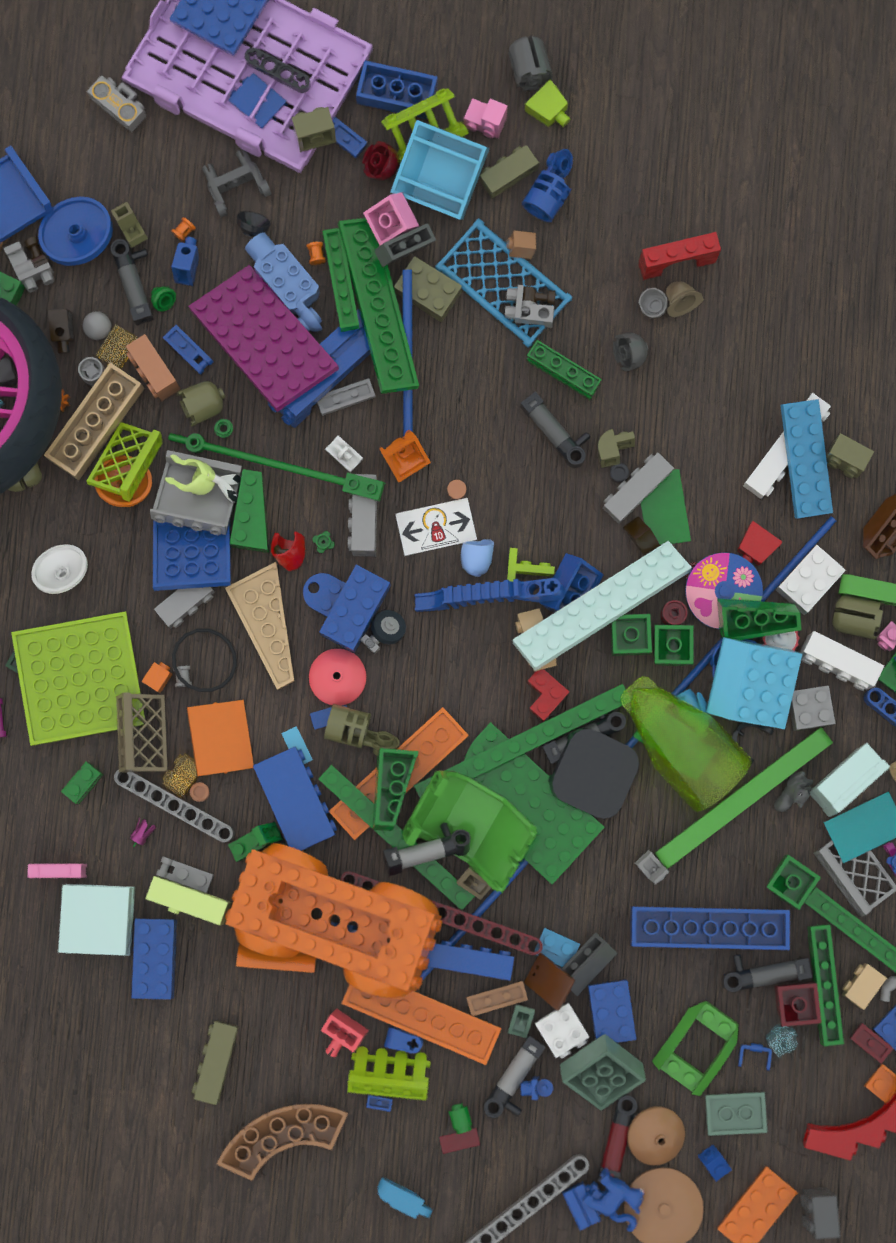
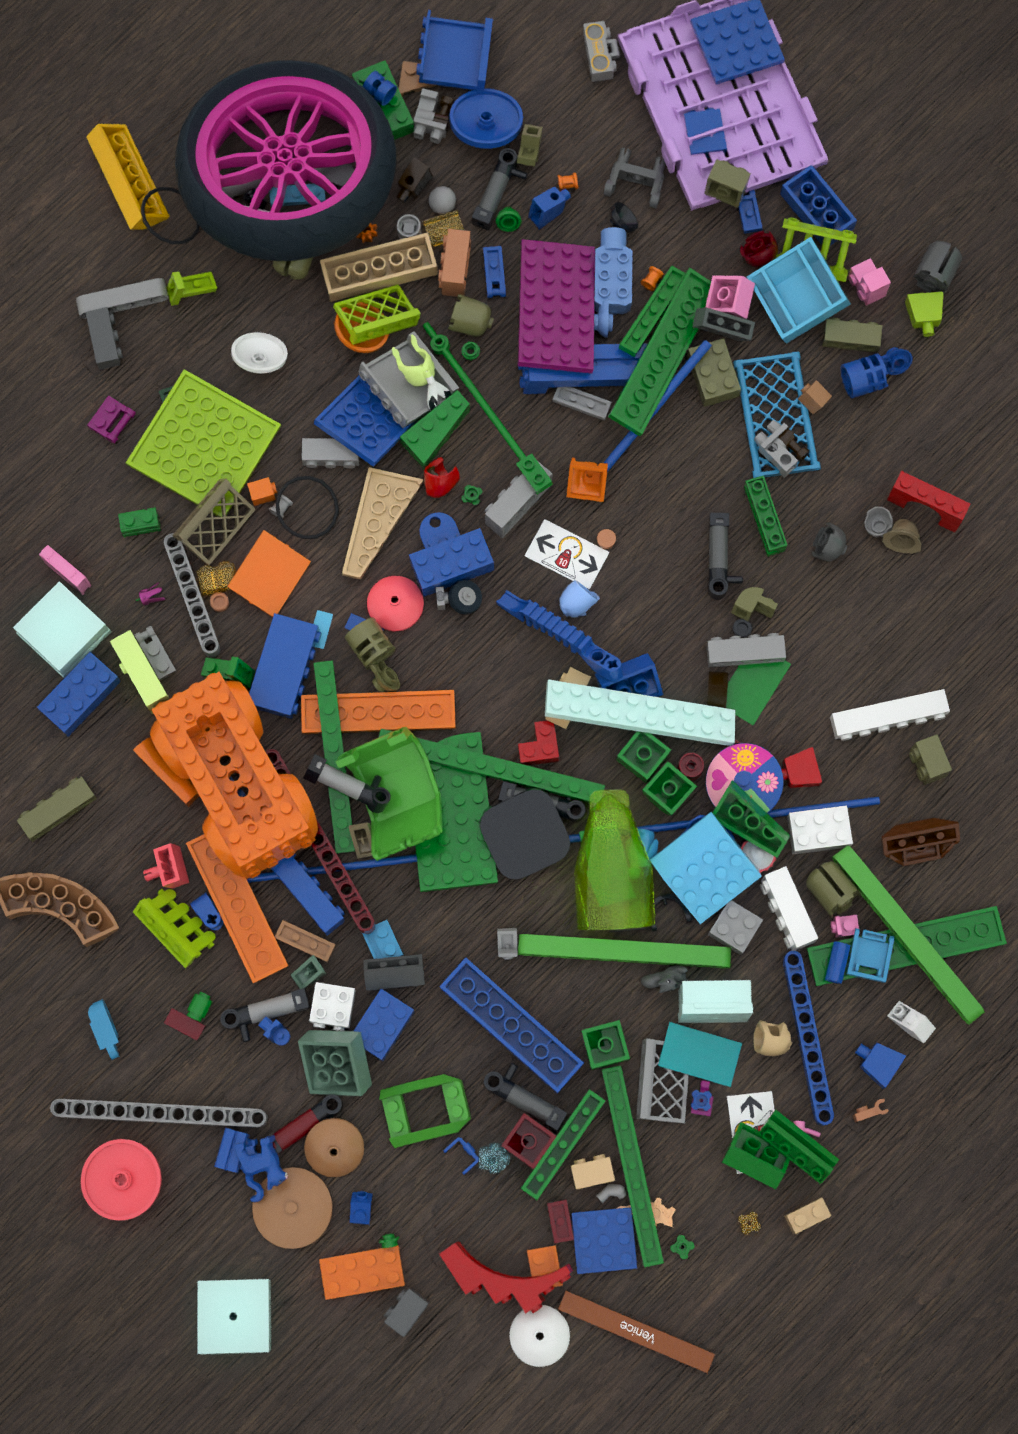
camera: 40 degrees right, 5 degrees down
(276, 72) = (735, 121): black beam -> none
(344, 454) = (543, 442): white hips -> none
(379, 1102) = (149, 942): blue piece -> none
(392, 780) = (366, 710): green wedge -> none
(526, 568) = (608, 639): lime bracket -> none
(549, 981) = (354, 960): reddish brown container -> none
(736, 1113) = (409, 1184): sand green plate -> none
(757, 1169) = (389, 1240): none -> green plate
(806, 458) = (896, 735): dark azure plate -> none

